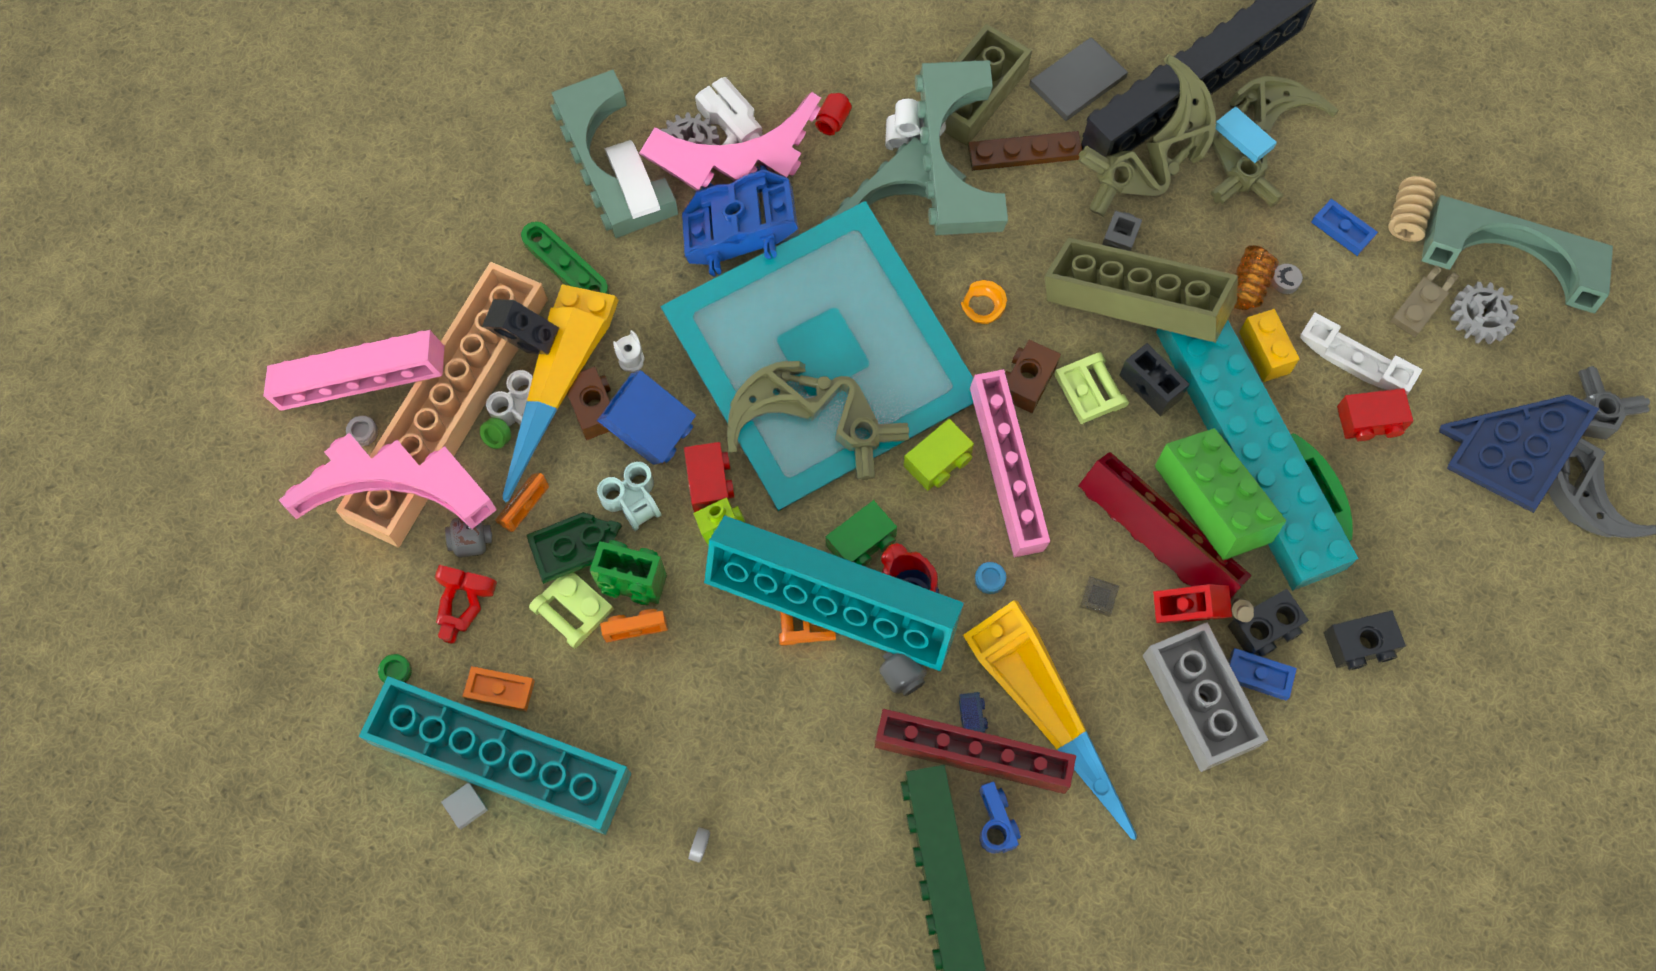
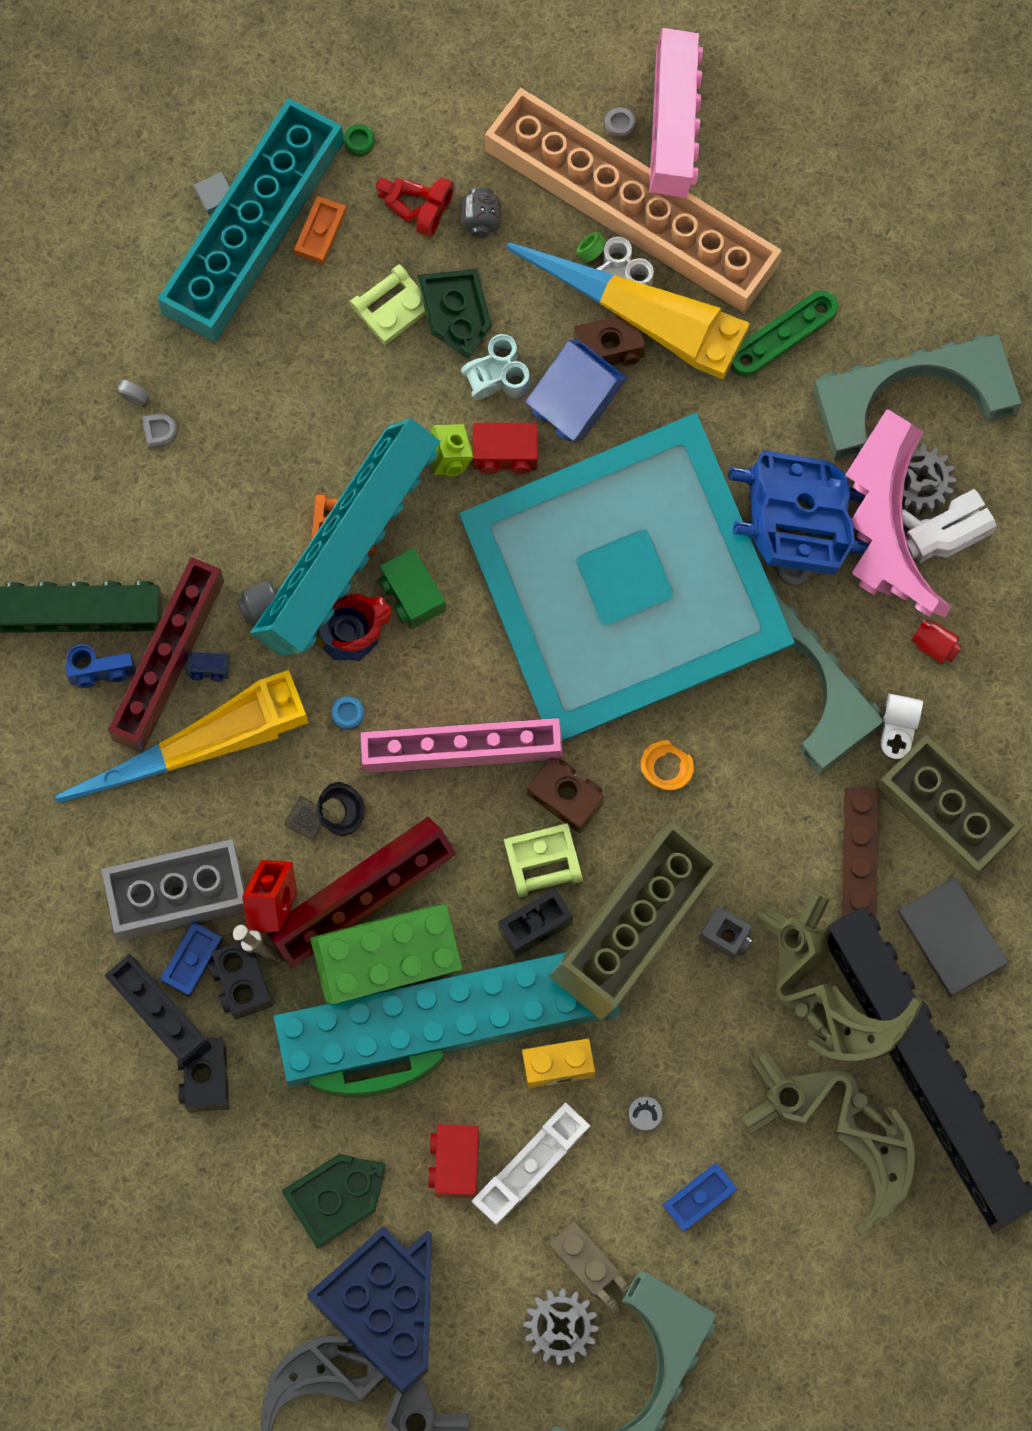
camera: 100 degrees right, 5 degrees up
(394, 469) = (532, 178): bright pink arch -> none
(520, 326) = (689, 269): black brick -> none
(523, 502) = (512, 268): orange slope -> none
(621, 628) = (360, 345): orange plate -> none
(628, 572) = (406, 352): green brick -> none
(629, 352) = (659, 383): white piece -> none
(632, 179) = (870, 403): white slope -> none
(733, 812) = (159, 430): none -> light grey tile
(855, 415) = (544, 596): olive piece -> none
(939, 455) = (489, 682): lime brick -> none
(955, 204) = (782, 740): sand green arch -> none
(1088, 555) = (352, 804): none -> black piece
(1245, 134) = (829, 1098): medium azure tile -> none
(1254, 276) = (645, 1068): clear orange piece -> none
(1321, 691) = (157, 1010): none -> black tile
(1412, 208) = (706, 1280): tan piece -> none
(1432, 510) = (336, 1196): none -> dark green tile

